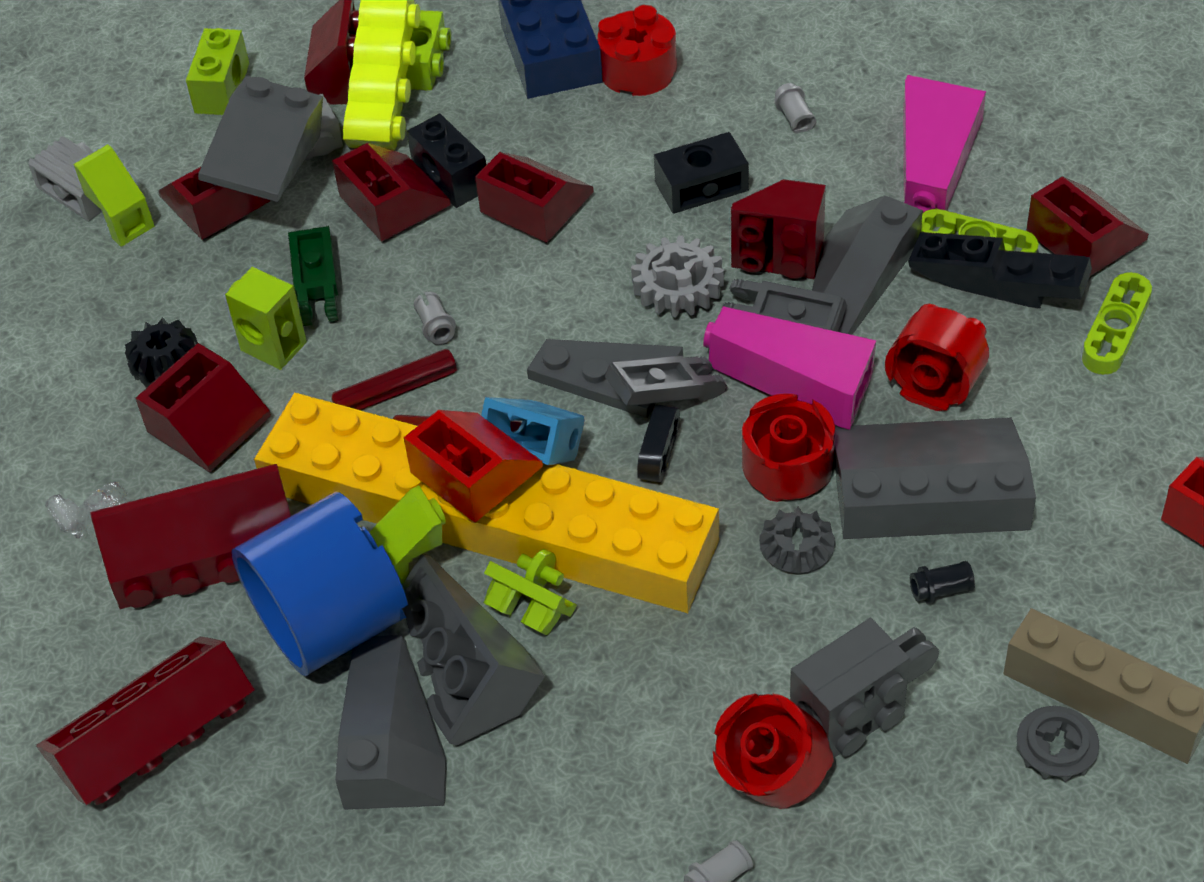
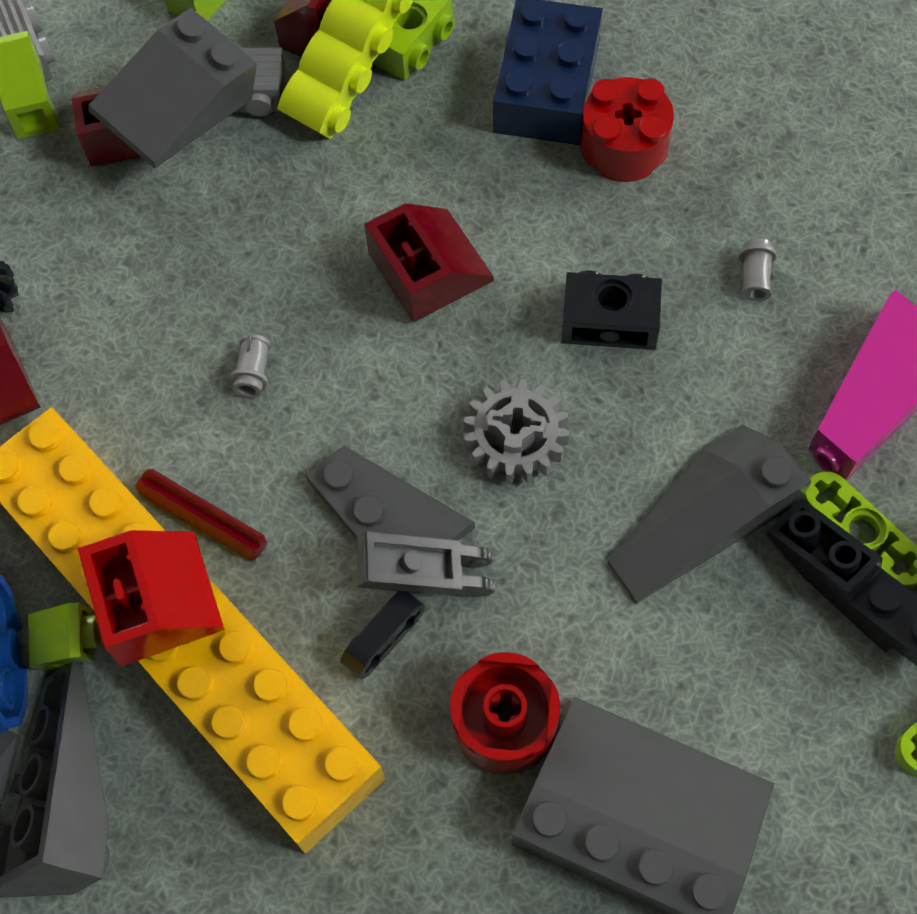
camera: 25 degrees right, 15 degrees up
(266, 317) = (78, 298): lime brick -> none
(313, 271) = (167, 256): dark green hinge -> none
(386, 189) = (288, 189): dark red slope -> none
(396, 381) = (172, 425): dark red axle -> none
(446, 158) = (362, 176): black brick -> none
(544, 431) = (254, 569): dark azure torso -> none
(545, 605) = (158, 753): lime hips -> none
(779, 229) = (646, 431): dark red slope -> none
(790, 303) = (606, 535): dark grey hinge -> none
(793, 360) = (576, 605): dark pink slope -> none
(816, 544) = (466, 851): dark grey gear -> none
(938, 357) = (726, 680): red brick -> none

